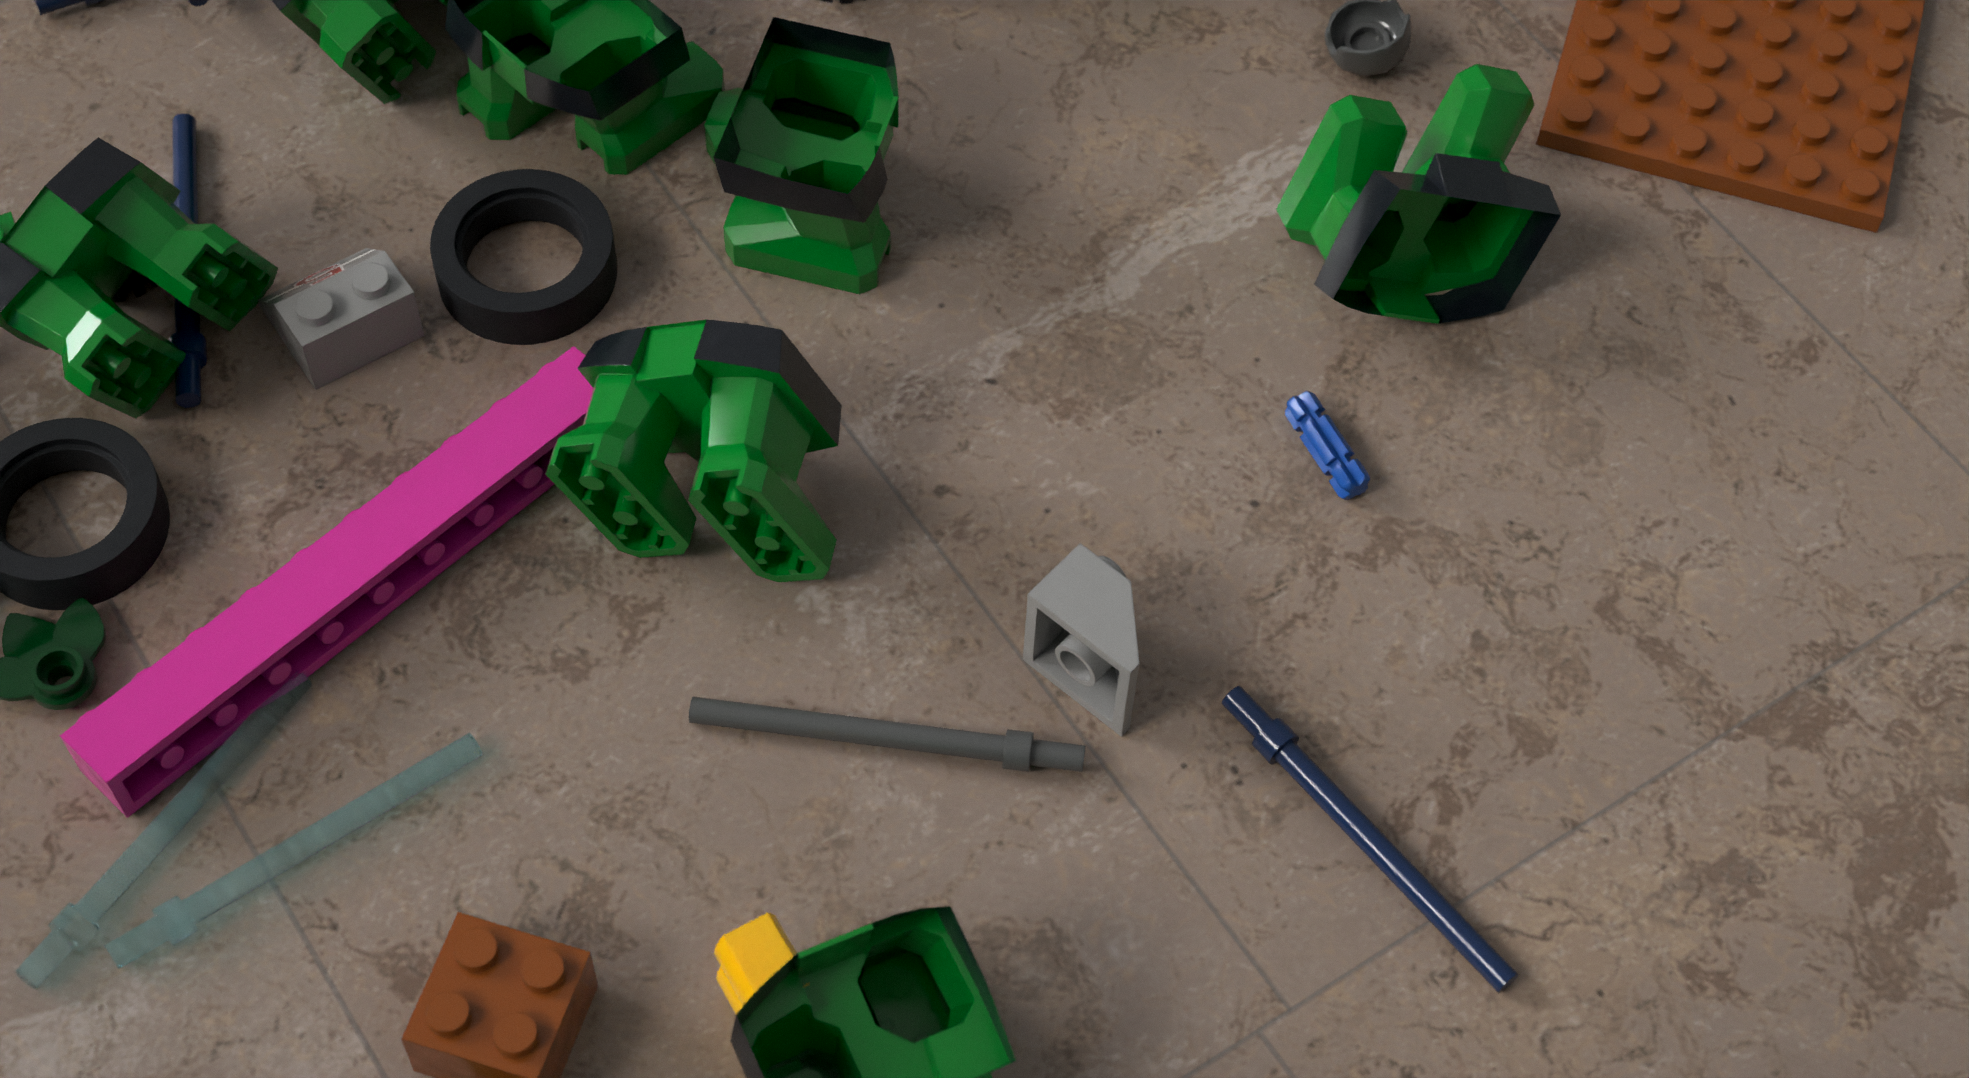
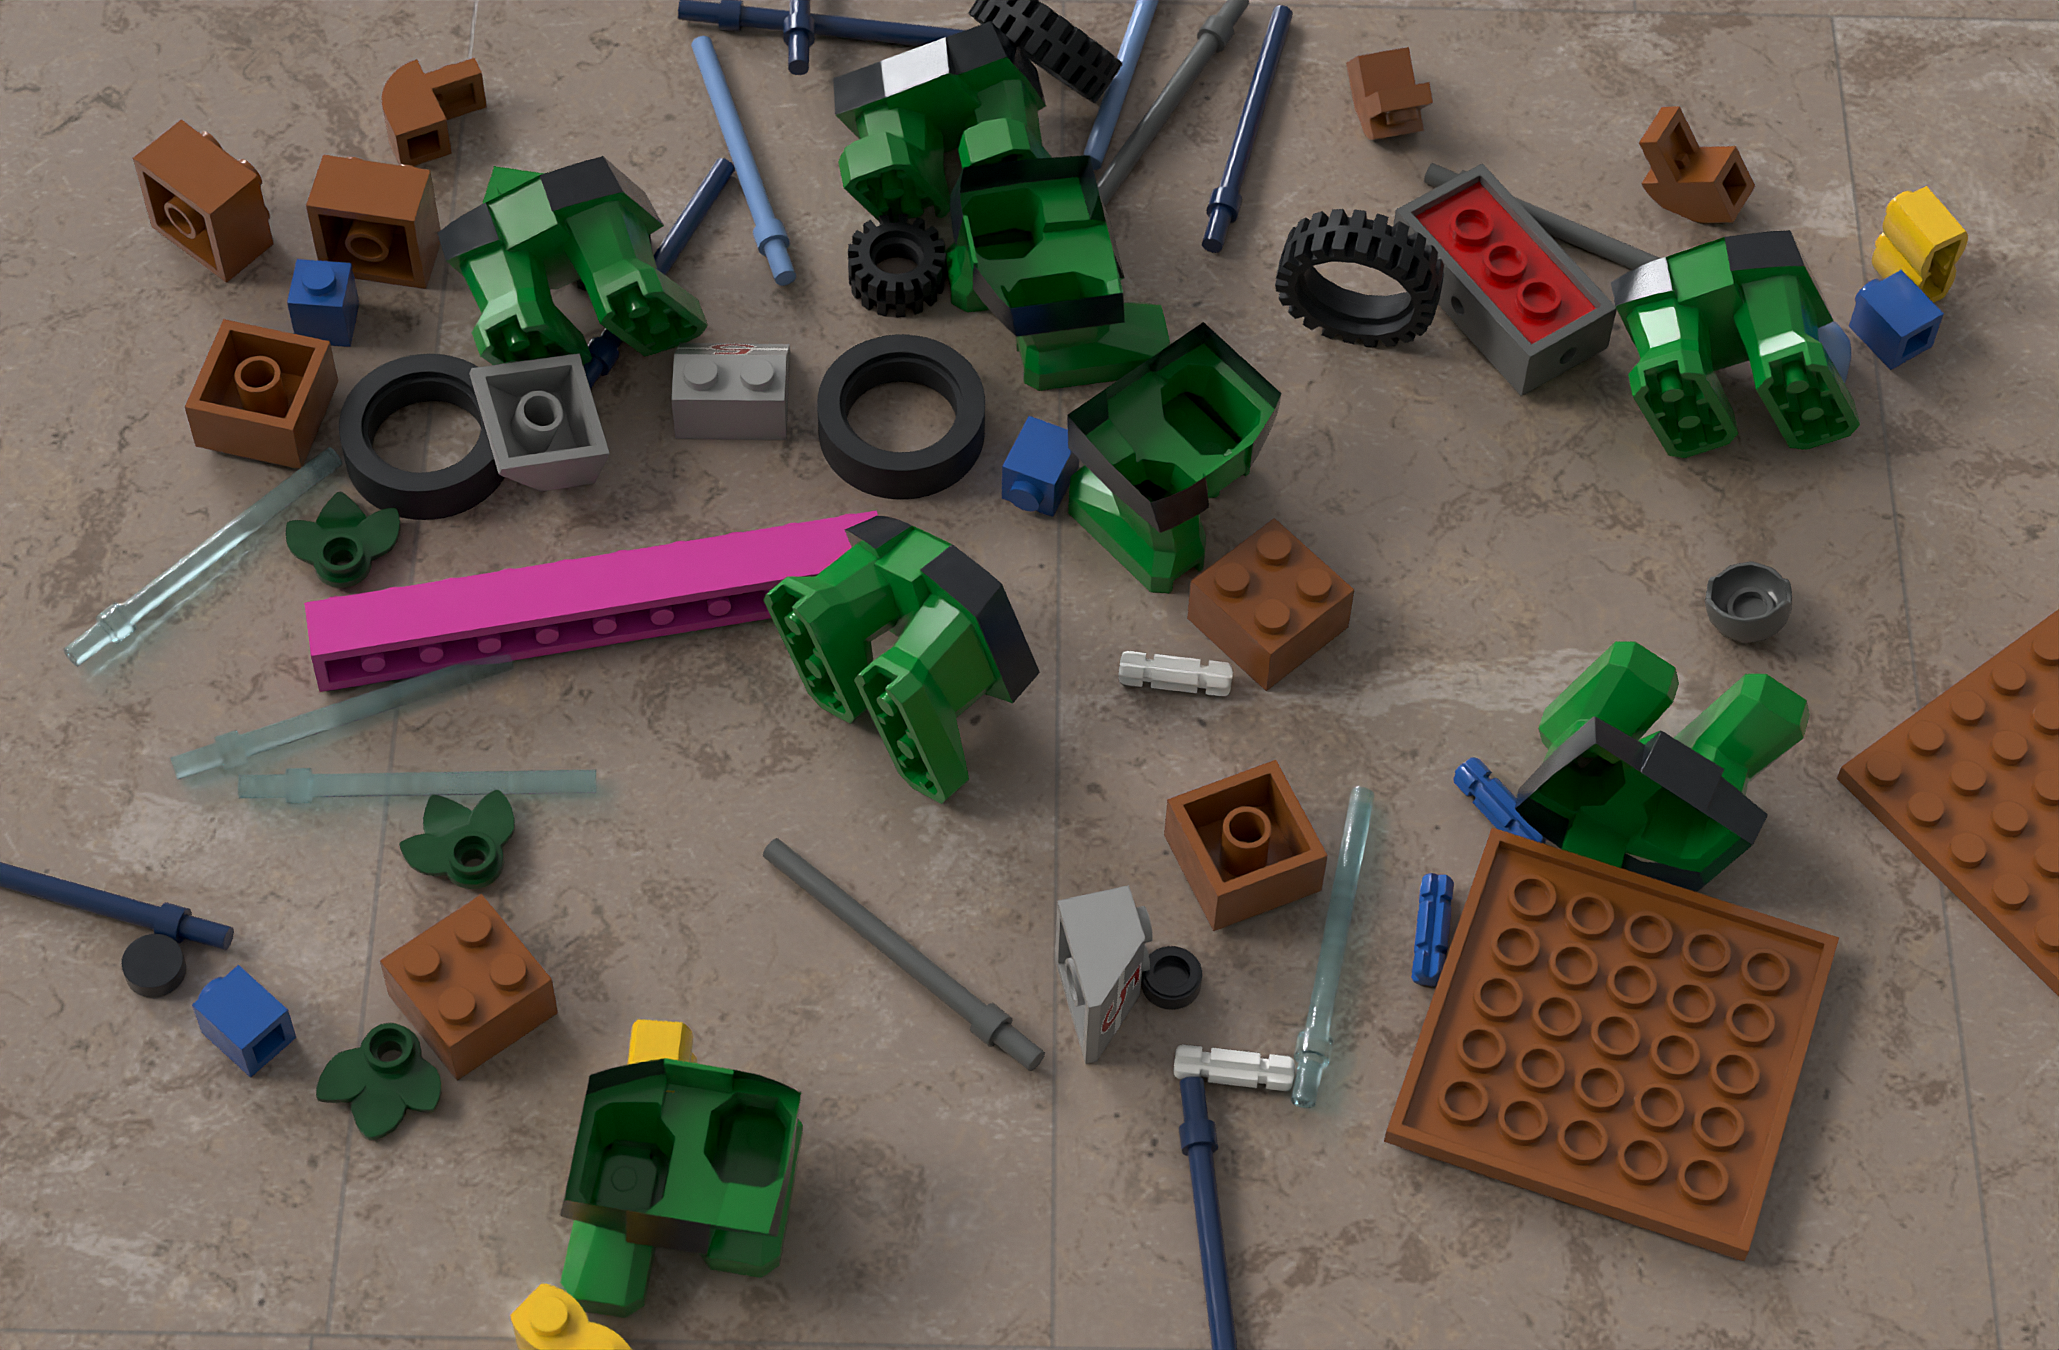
camera: 35 degrees right, 0 degrees up
(188, 430) = (541, 422): none -> light grey slope
(272, 158) = (768, 231): none -> medium blue bar
(377, 872) = (459, 835): none -> dark green plate
(414, 103) = (901, 241): none -> black tyre
(687, 233) = (1038, 467): none -> blue brick
(940, 349) = (1175, 673): none -> white axle
(982, 244) = (1270, 604): none -> dark orange brick
(1126, 459) = (1245, 845): none -> dark orange brick
(1152, 614) = (1172, 978): none -> black tile
(1257, 661) = (1234, 1067): none -> white axle
(1299, 311) = (1493, 799): none -> blue axle
(1306, 598) = (1314, 1042): none -> clear light blue bar
(1547, 455) = (1614, 1043): none -> dark orange plate

